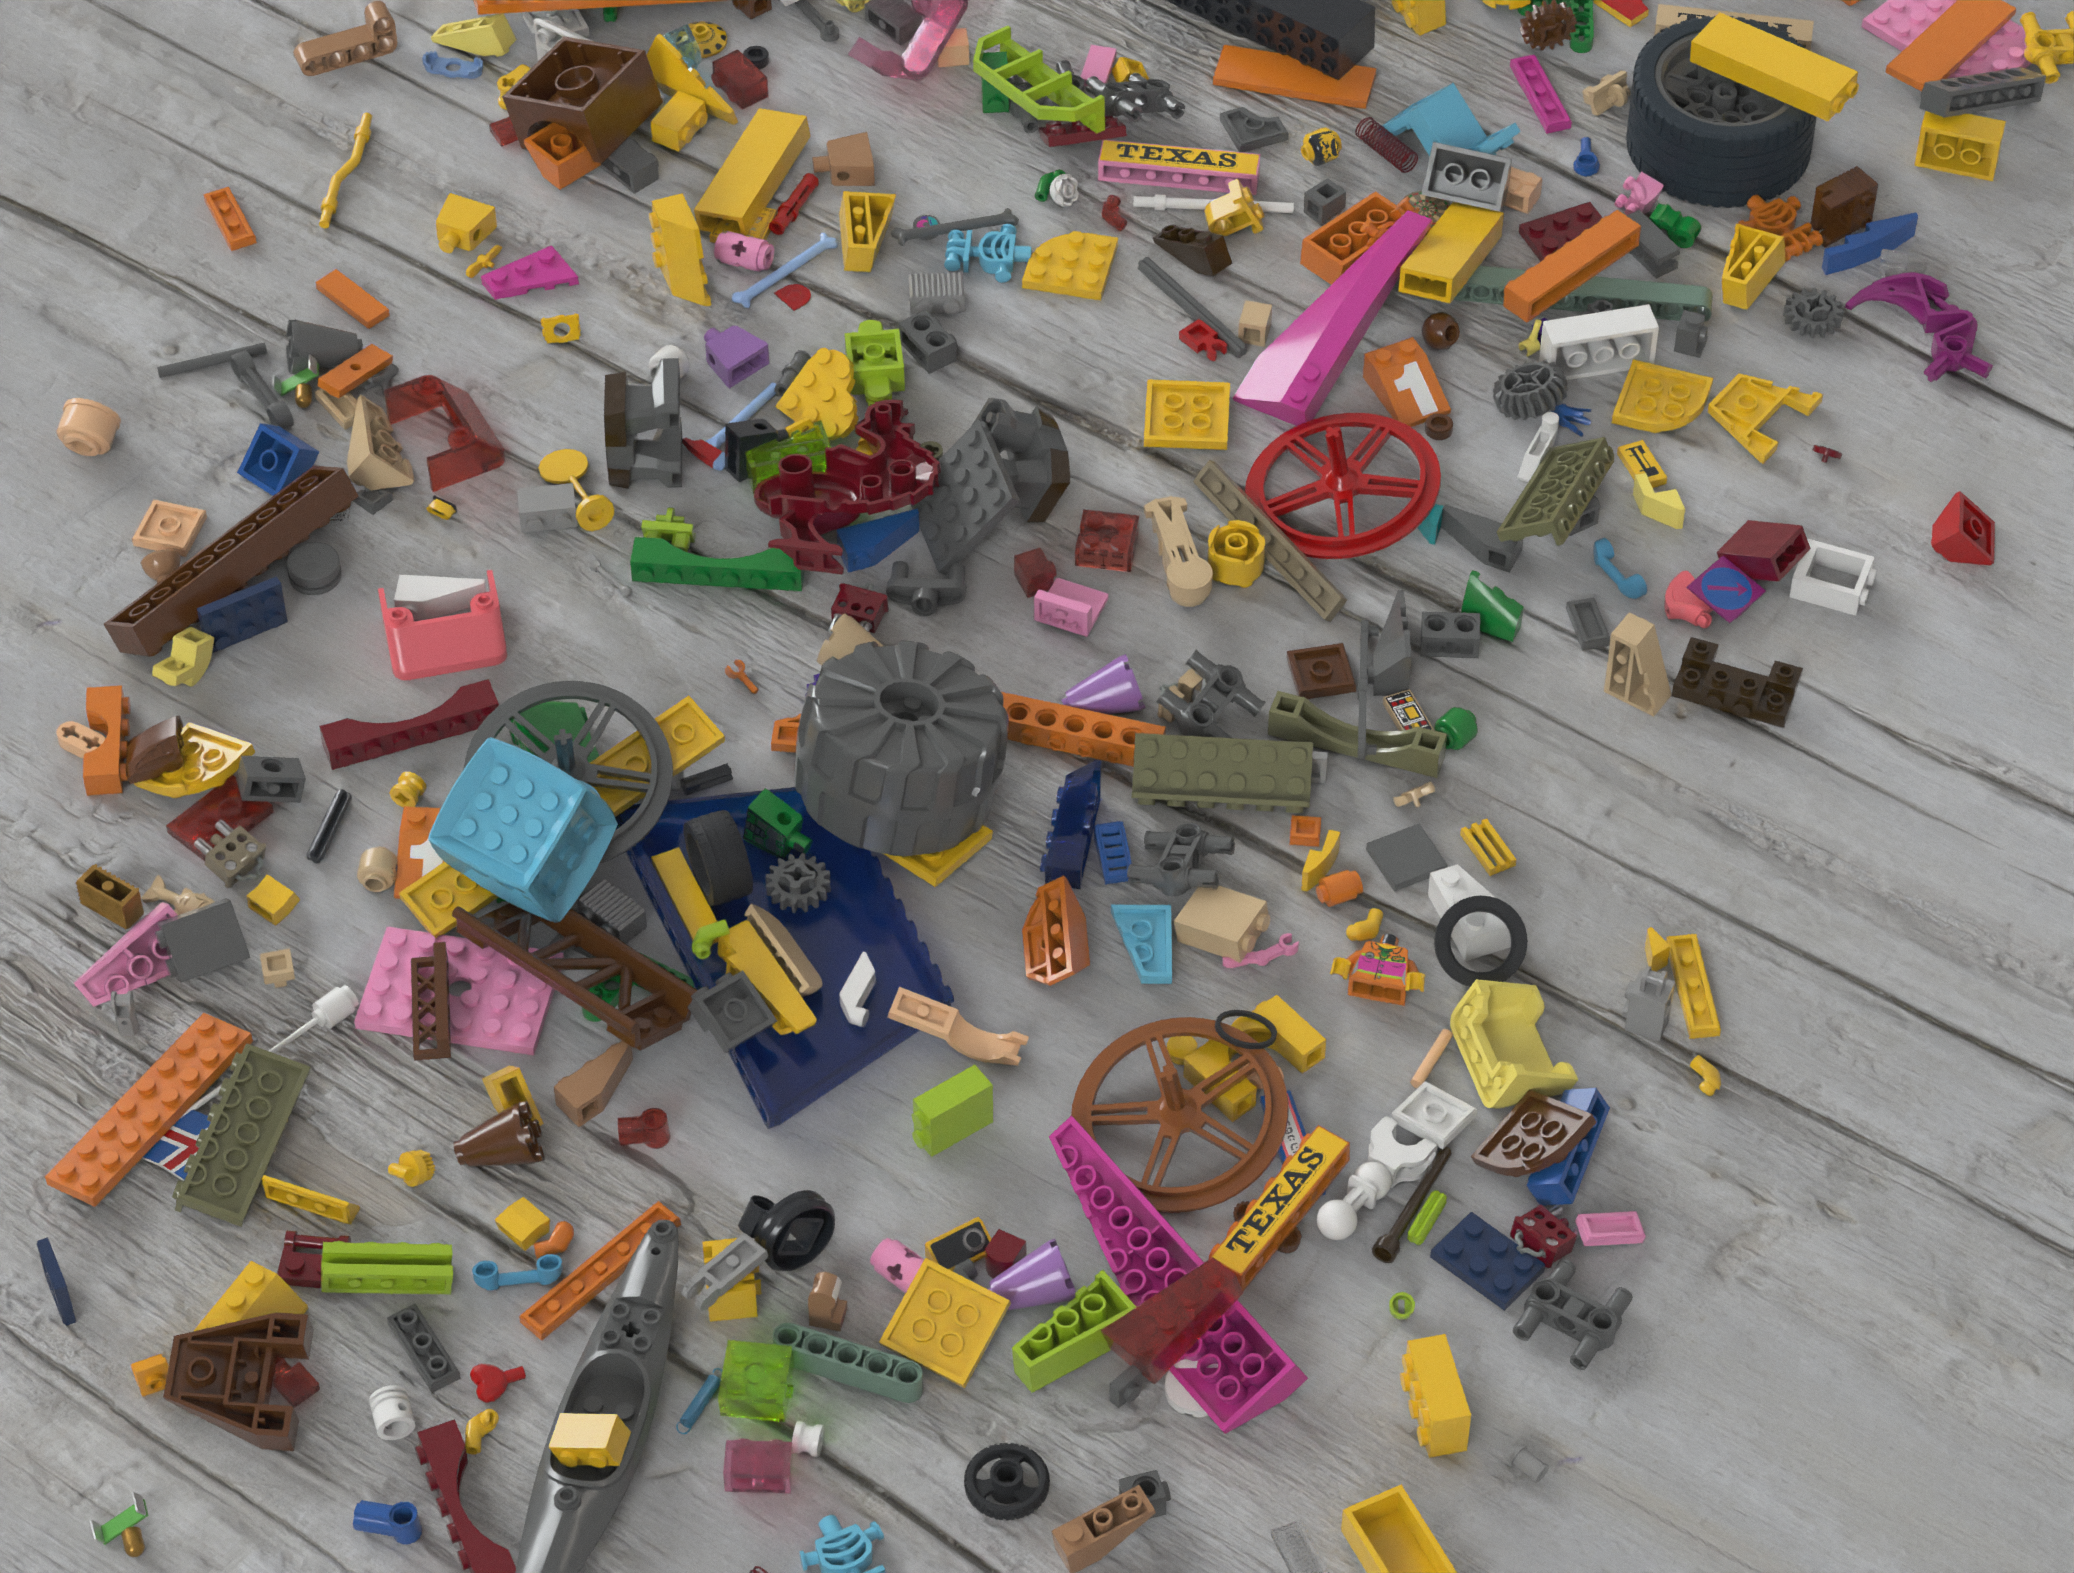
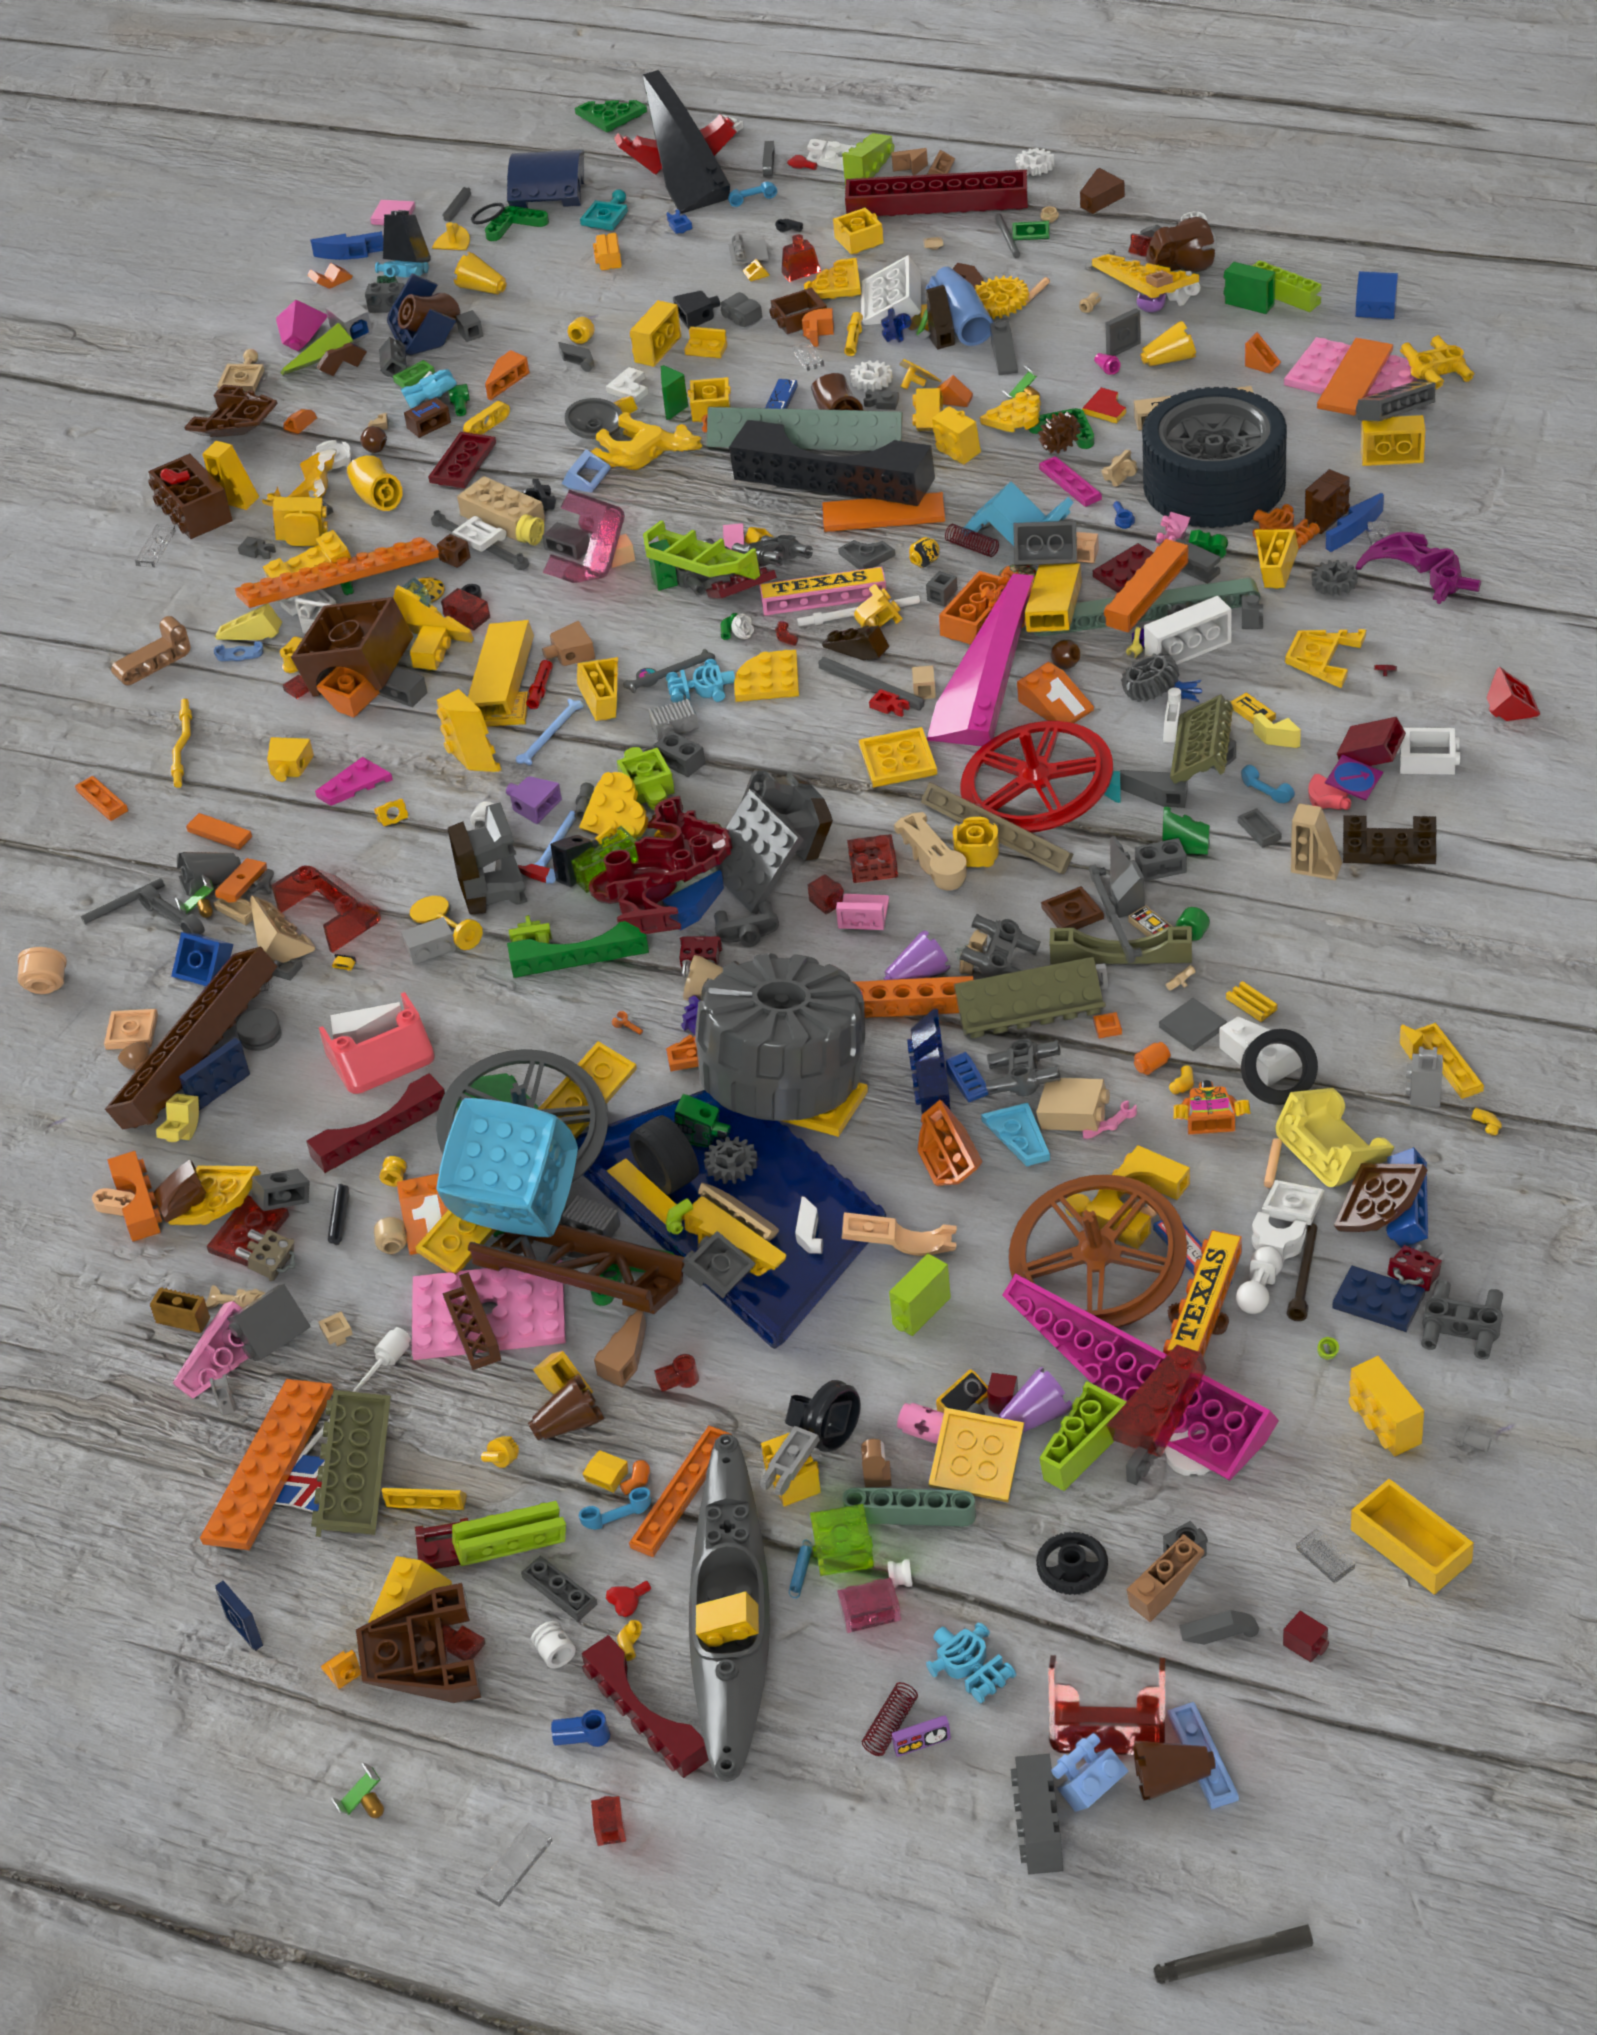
camera: 10 degrees left, 5 degrees down
(272, 900) = (312, 1280): yellow piece -> none
(483, 261) = (312, 780): yellow piece -> none
(706, 779) = (627, 1104): black piece -> none
(730, 249) = (525, 728): bright pink piece -> none
(794, 295) = (563, 748): red piece -> none
(1247, 1045) = (1126, 1185): black piece -> none
(1319, 862) = (1129, 1043): yellow slope -> none
(1427, 1217) = (1318, 1279): lime axle -> none
(1439, 426) = (1090, 720): reddish brown tile -> none
(1610, 1228) = (1463, 1249): bright pink tile -> none
(1660, 398) = (1247, 661): yellow plate -> none
(1774, 66) = (1247, 411): yellow brick -> none

